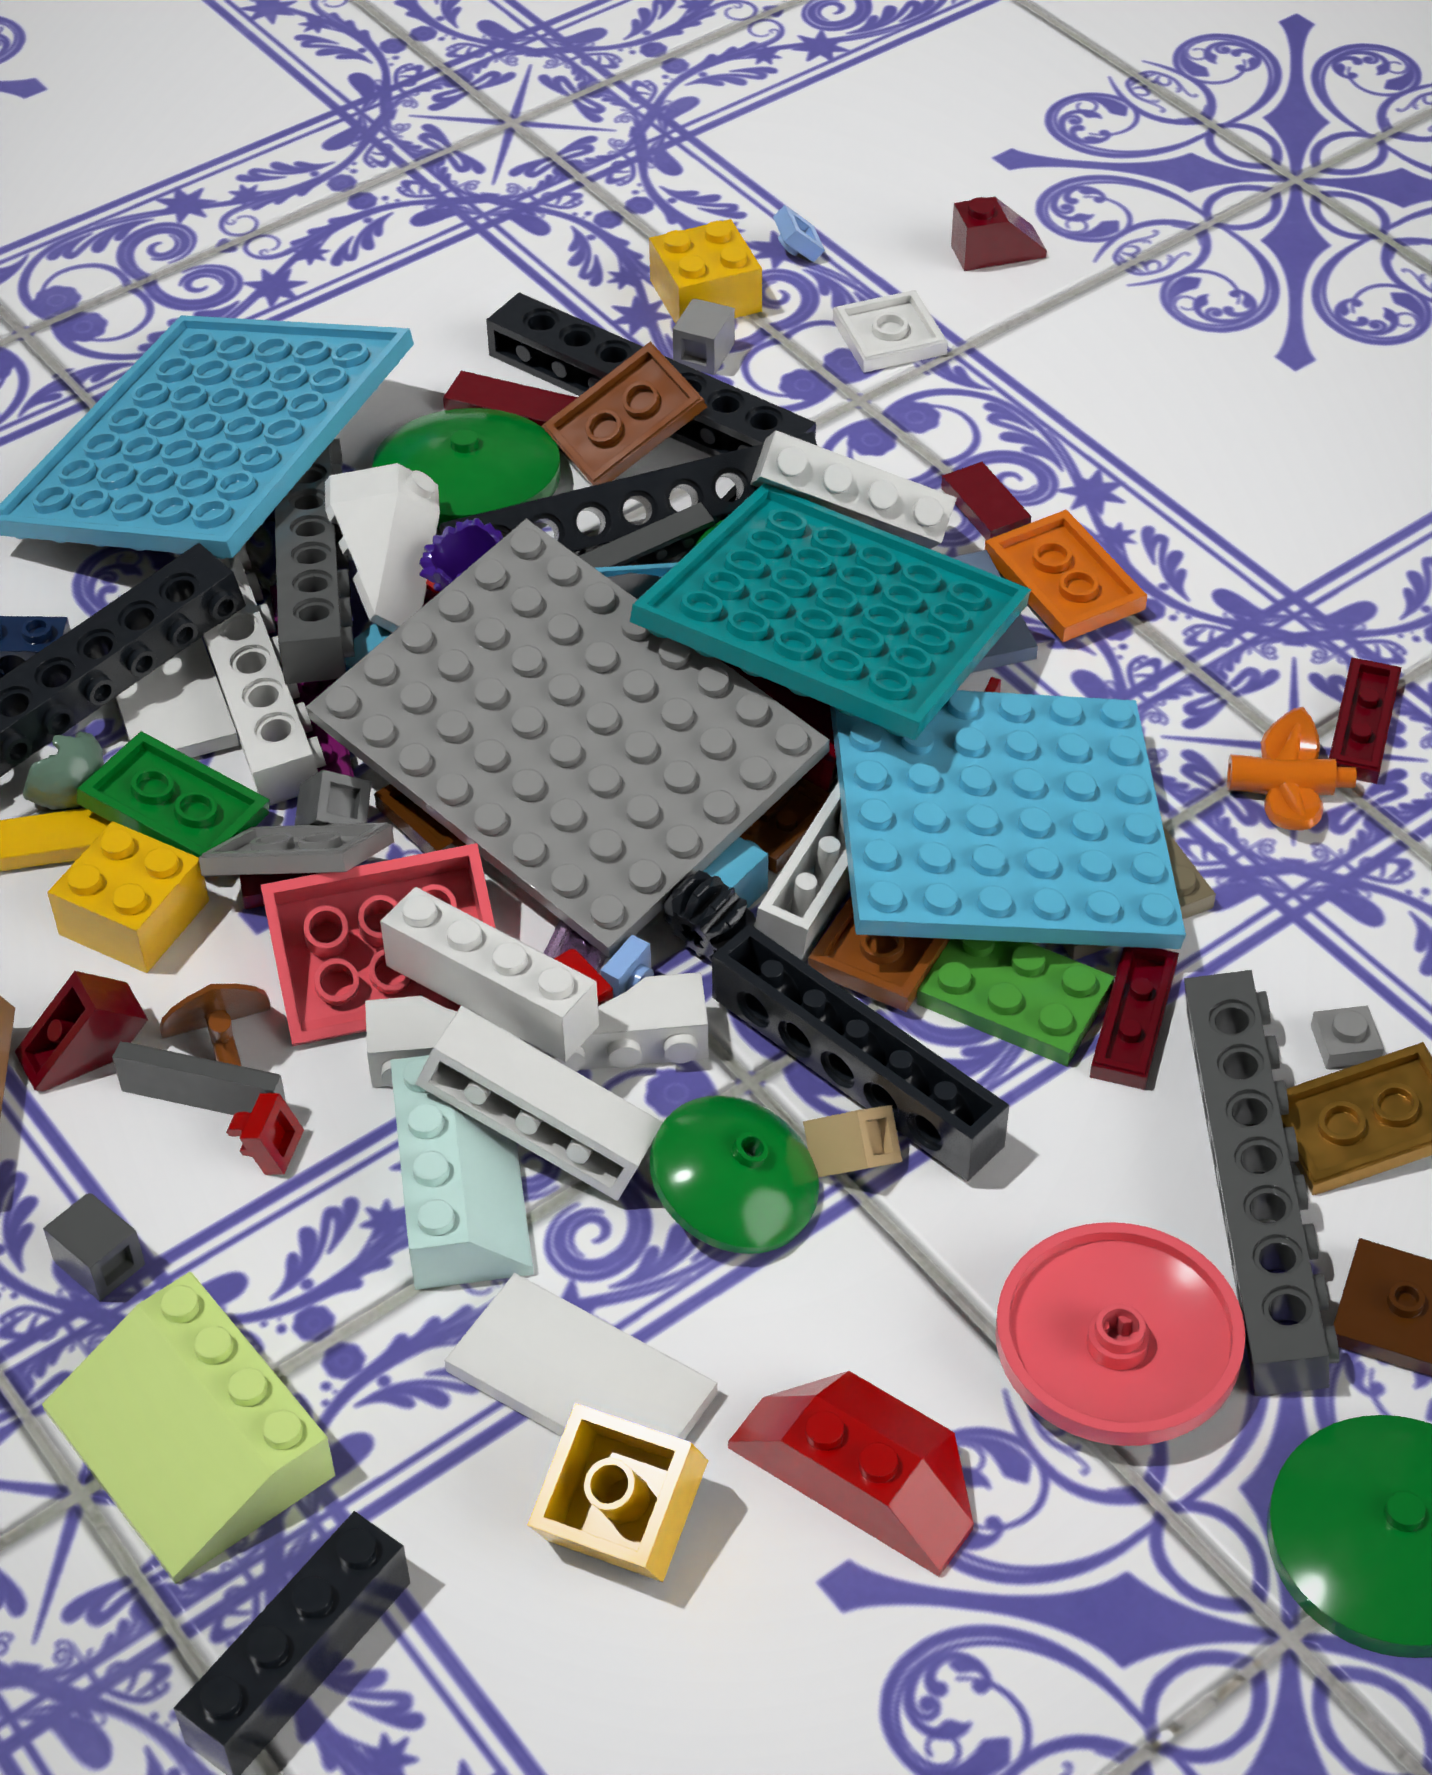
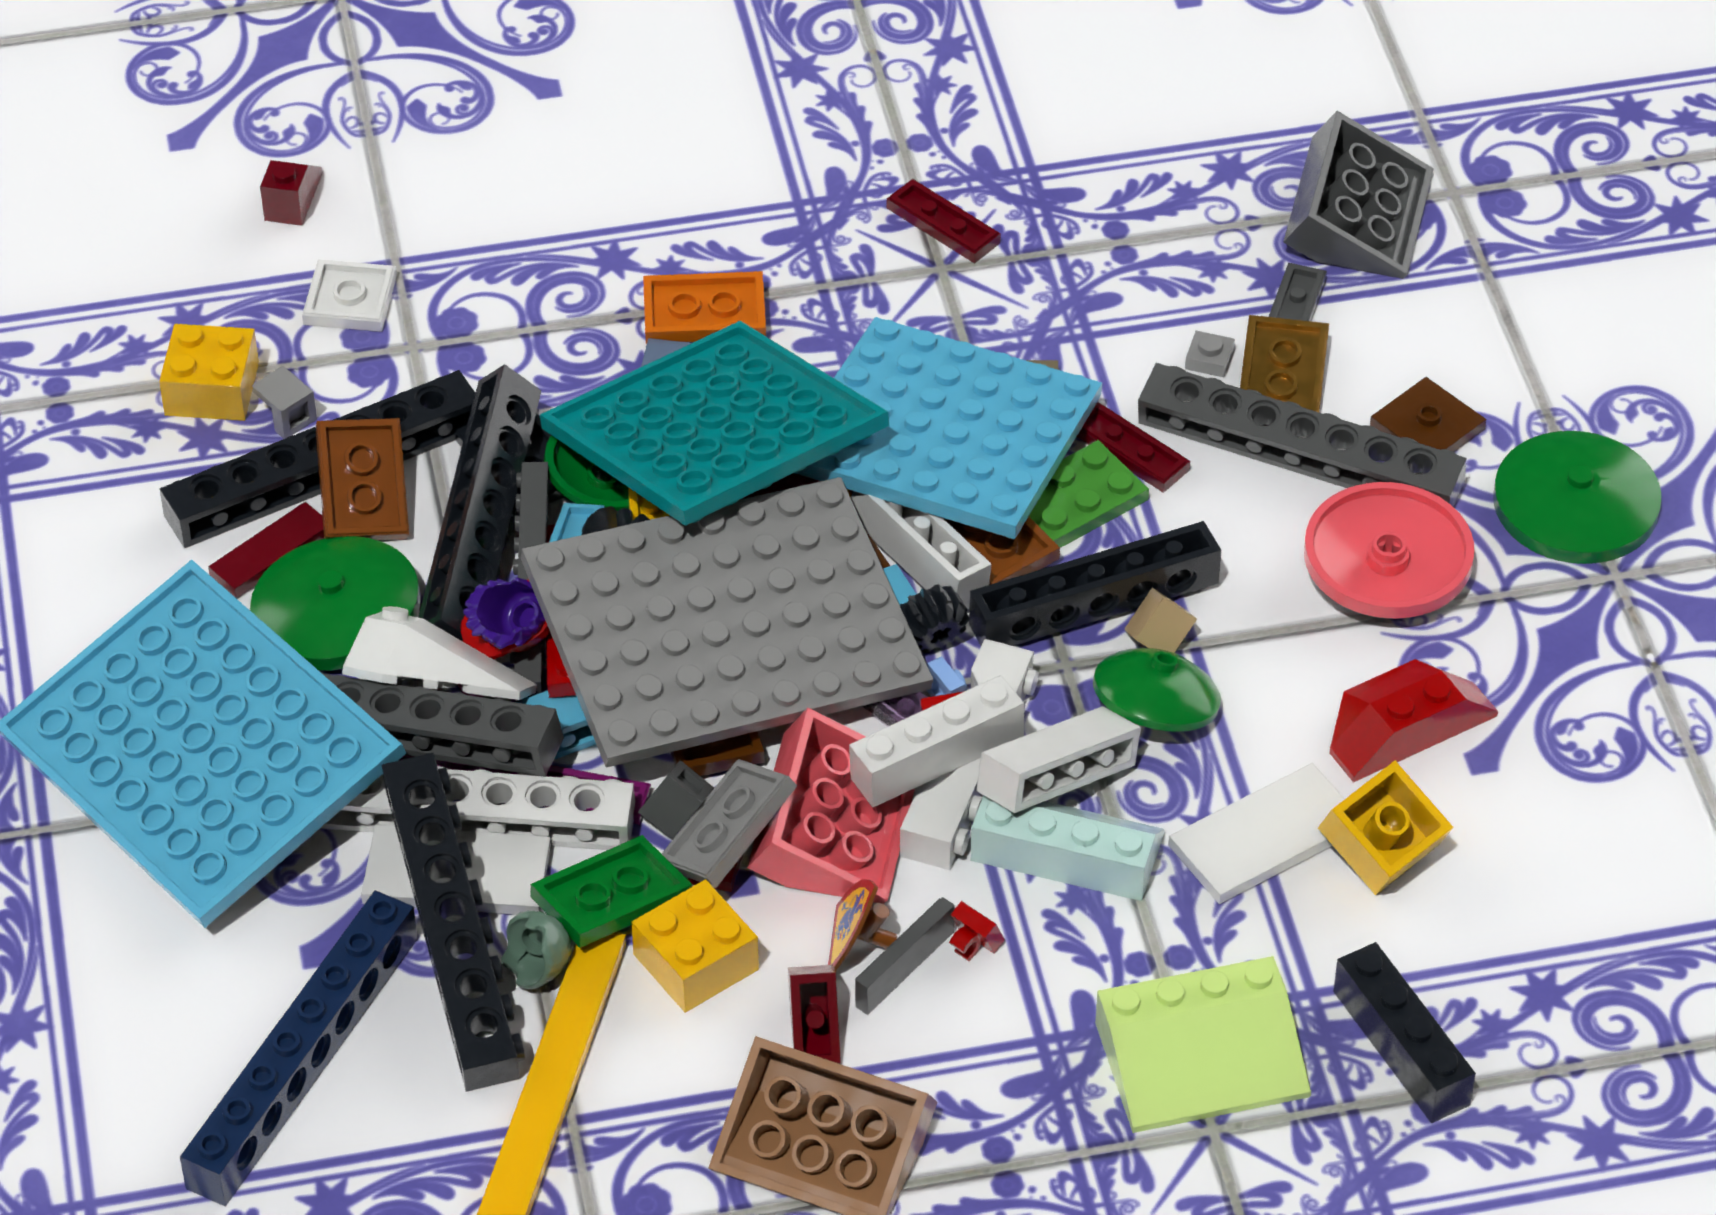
camera: 65 degrees left, 0 degrees up
(94, 1246) = (1024, 1054): dark grey panel -> none
(797, 234) = (195, 300): light blue plate -> none
(854, 489) = (567, 374): white brick -> none
(985, 500) = (590, 319): dark red tile -> none
(1290, 772) = (974, 277): orange plant -> none

